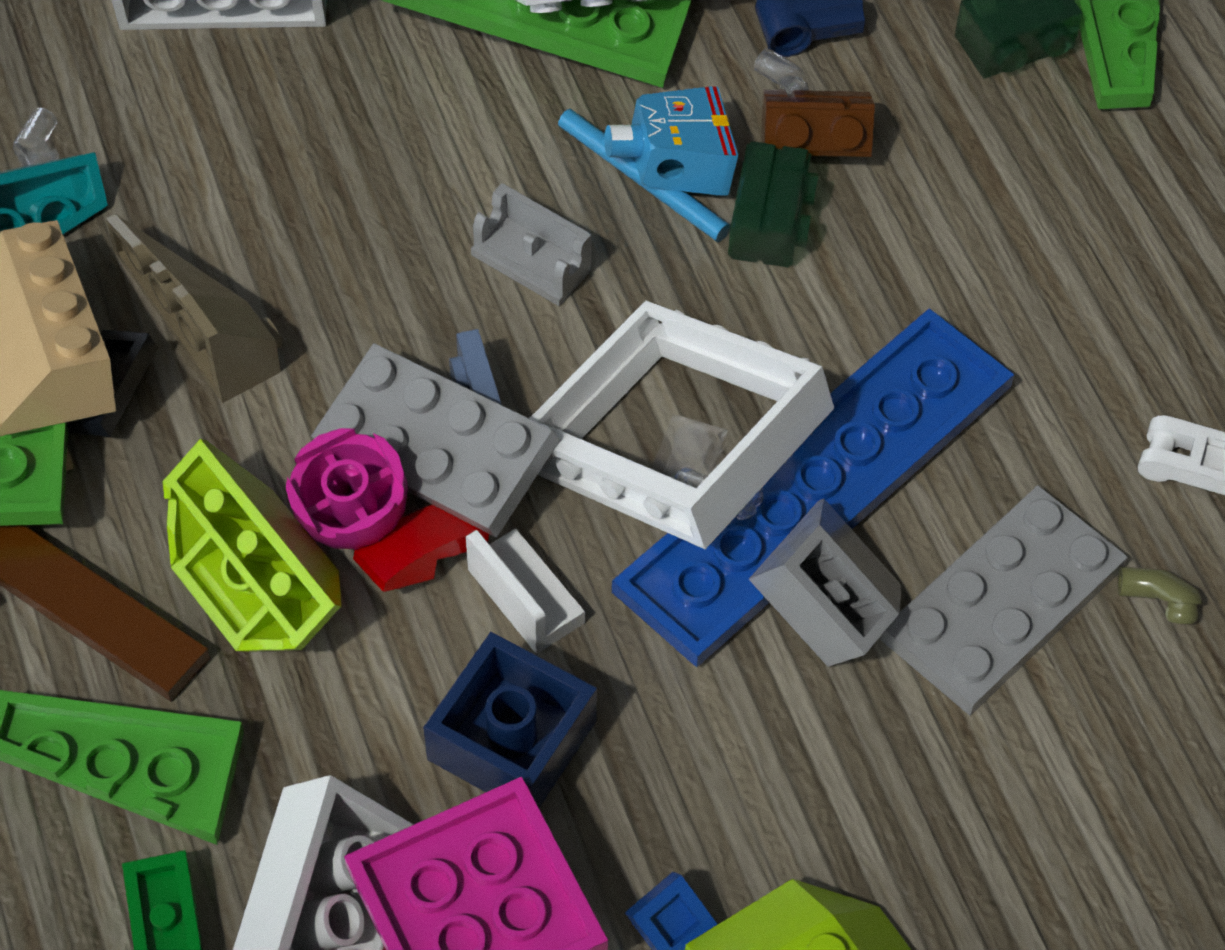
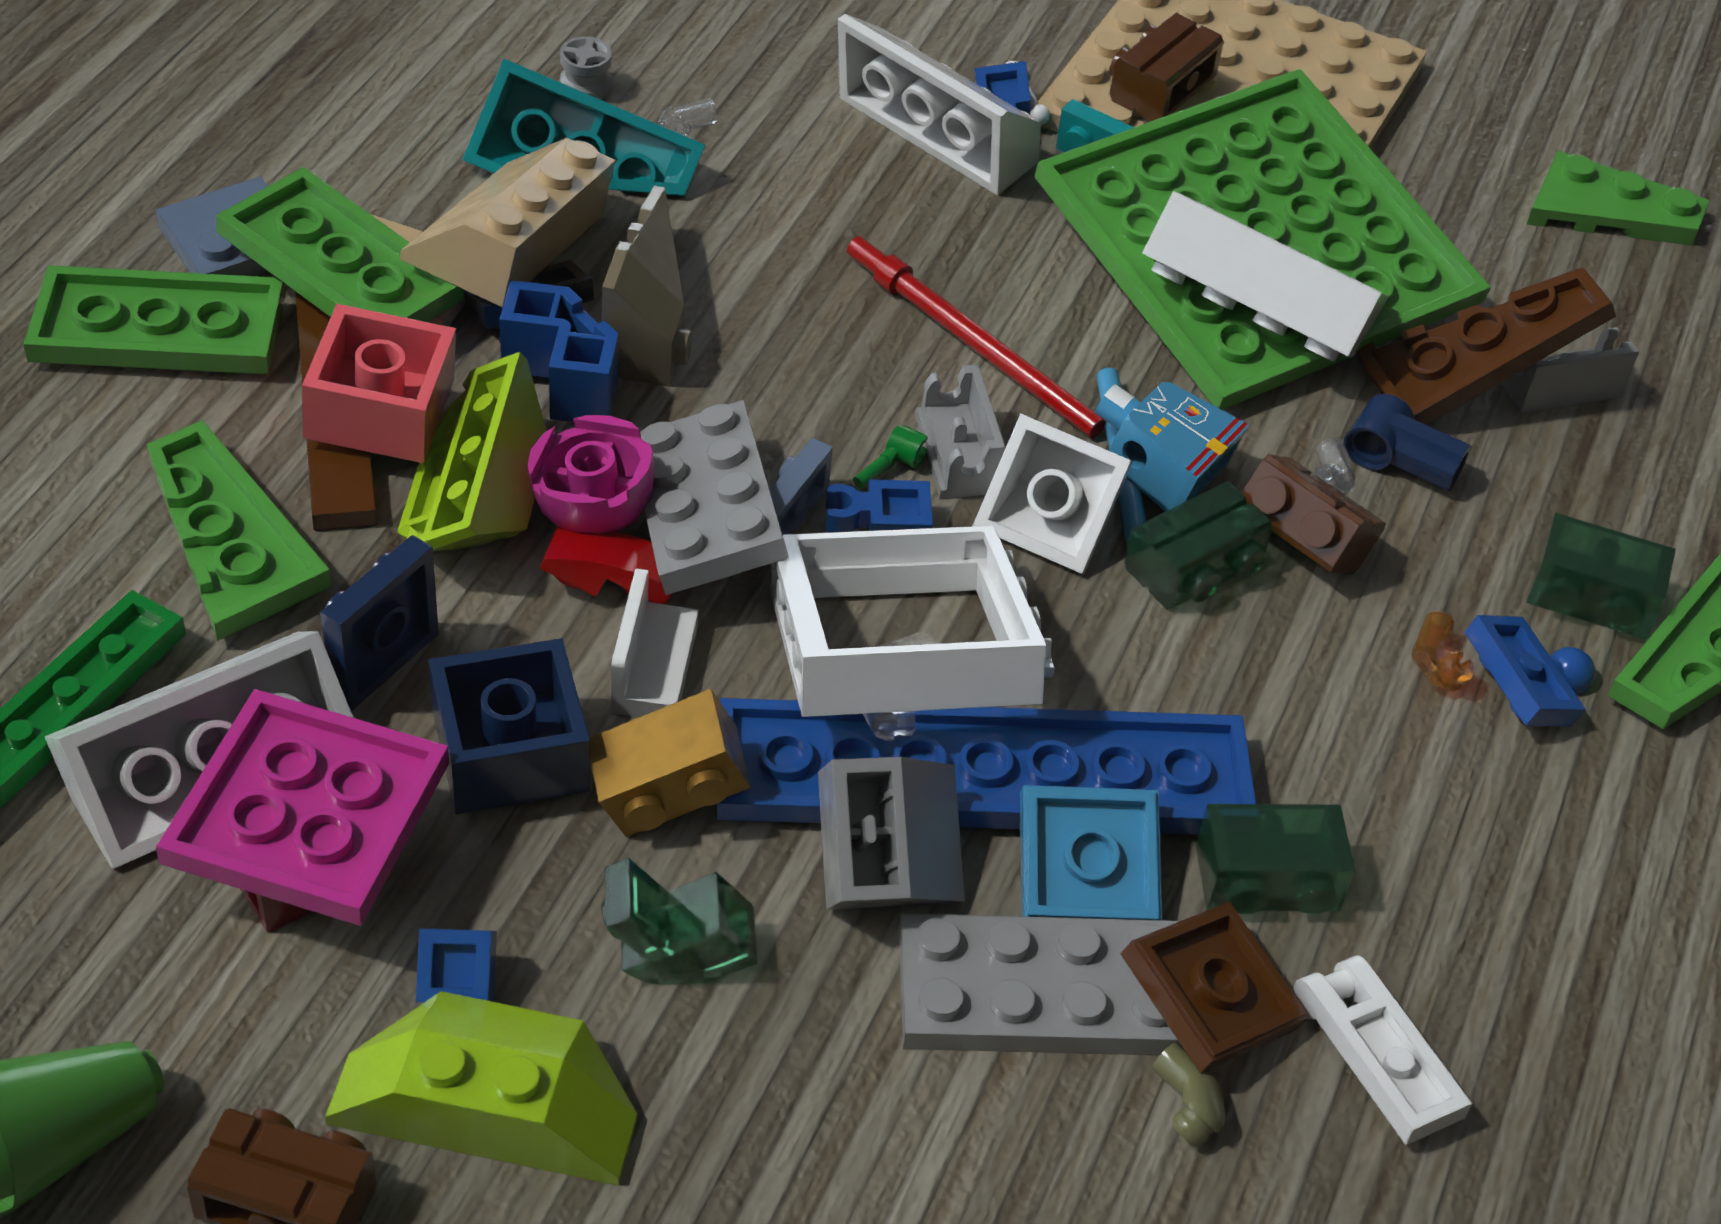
camera: 40 degrees right, 10 degrees down
(113, 548) = (378, 383): none -> coral brick
(177, 402) = (562, 345): none -> blue brick
(337, 718) = (382, 619): none -> dark blue plate
(339, 153) = (898, 277): none -> red bar
(502, 286) = (902, 446): none -> green hand
(548, 342) = (884, 506): none -> blue plate
(645, 240) = (1053, 493): none -> white slope
(647, 657) = (668, 763): none -> pearl gold brick
(777, 762) = (678, 933): none -> clear green brick
(947, 488) = (1090, 853): none -> dark azure tile
(981, 168) = (1433, 658): none -> clear orange arm
(1046, 129) = (1537, 685): none -> blue plate
(1047, 393) = (1275, 857): none -> clear green brick
(1108, 510) = (1214, 986): none -> reddish brown tile

